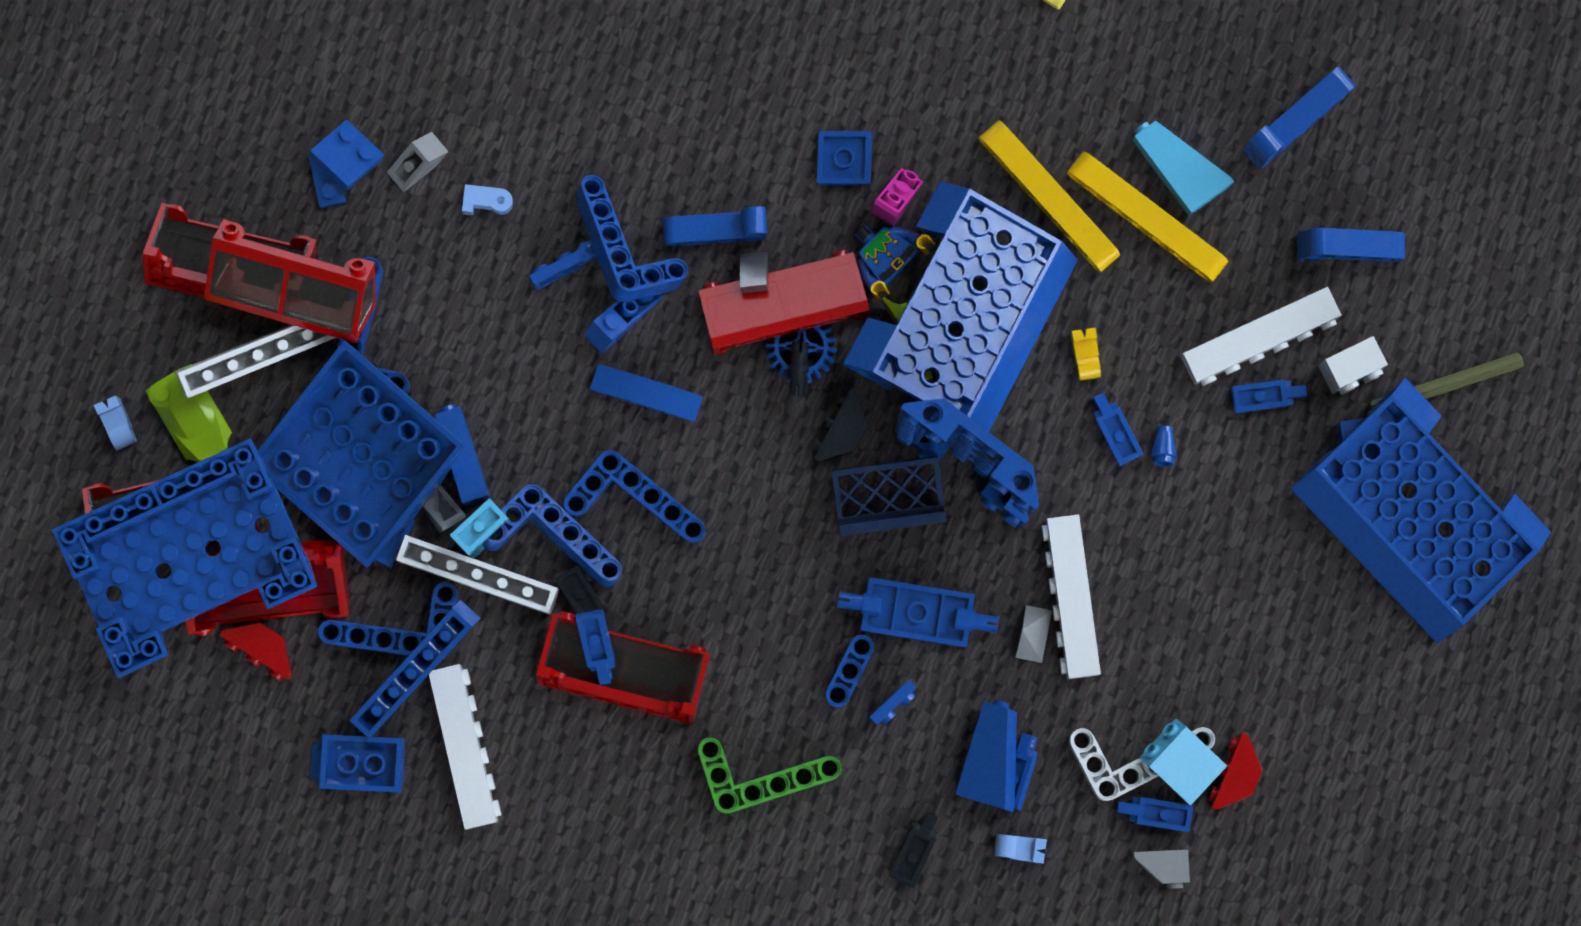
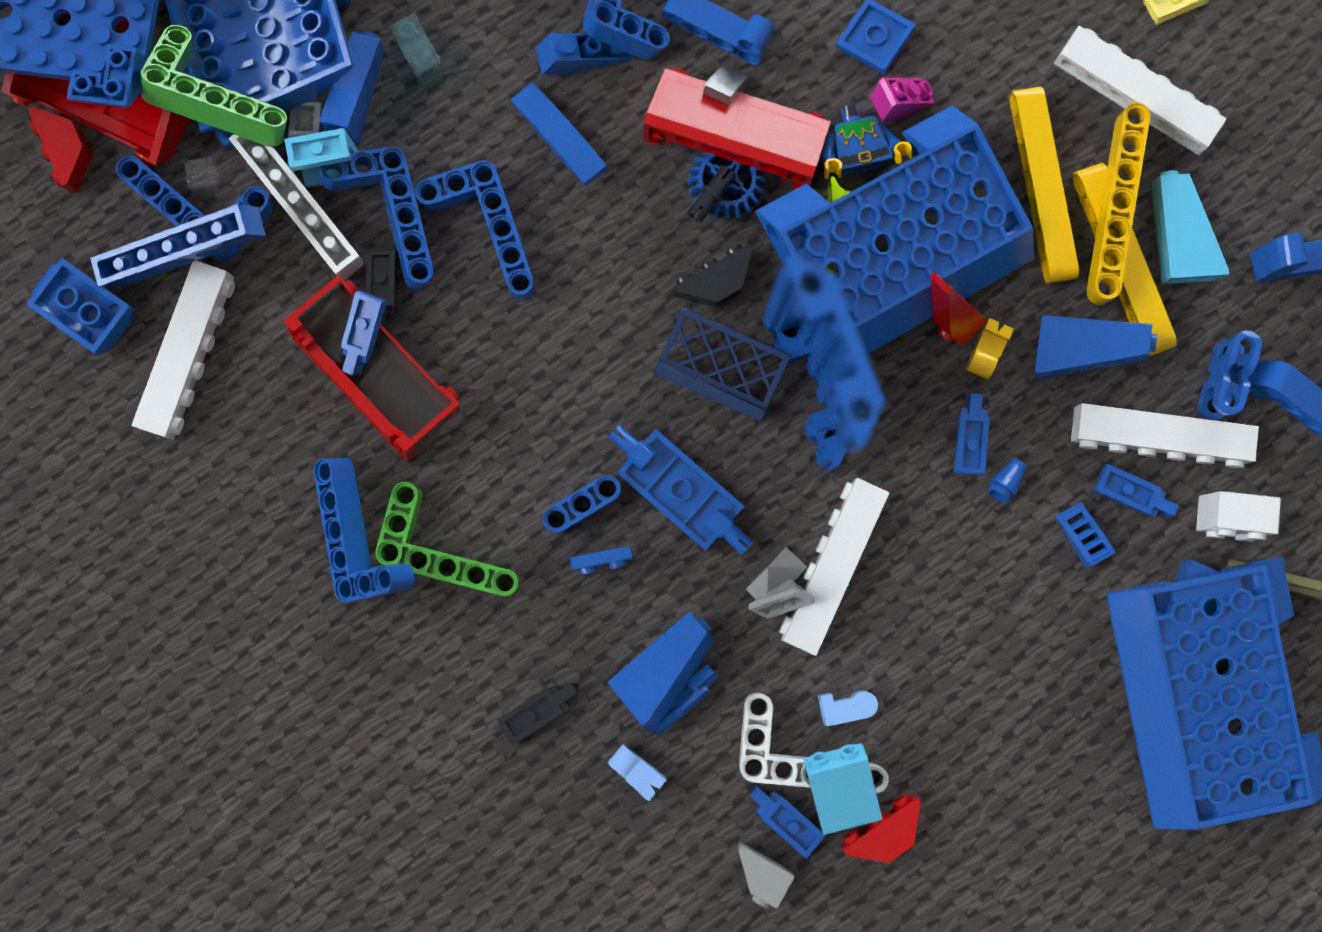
camera: 30 degrees right, 0 degrees up
(362, 539) = (170, 89): none -> bright green beam
(383, 600) = (201, 174): none -> clear tile
(492, 396) = (417, 49): none -> clear light blue brick
(686, 812) = (347, 540): none -> blue beam
(1042, 344) = (953, 313): none -> red slope
(1048, 648) = (781, 600): none -> light grey slope
(1077, 74) = (1129, 81): none -> white brick
(1117, 168) = (1126, 192): none -> yellow beam
(1157, 692) = (857, 707): none -> light blue leg
(1158, 305) = (1089, 344): none -> blue slope
(1264, 469) = (1075, 540): none -> blue slope
(1282, 261) = (1229, 376): none -> blue piece

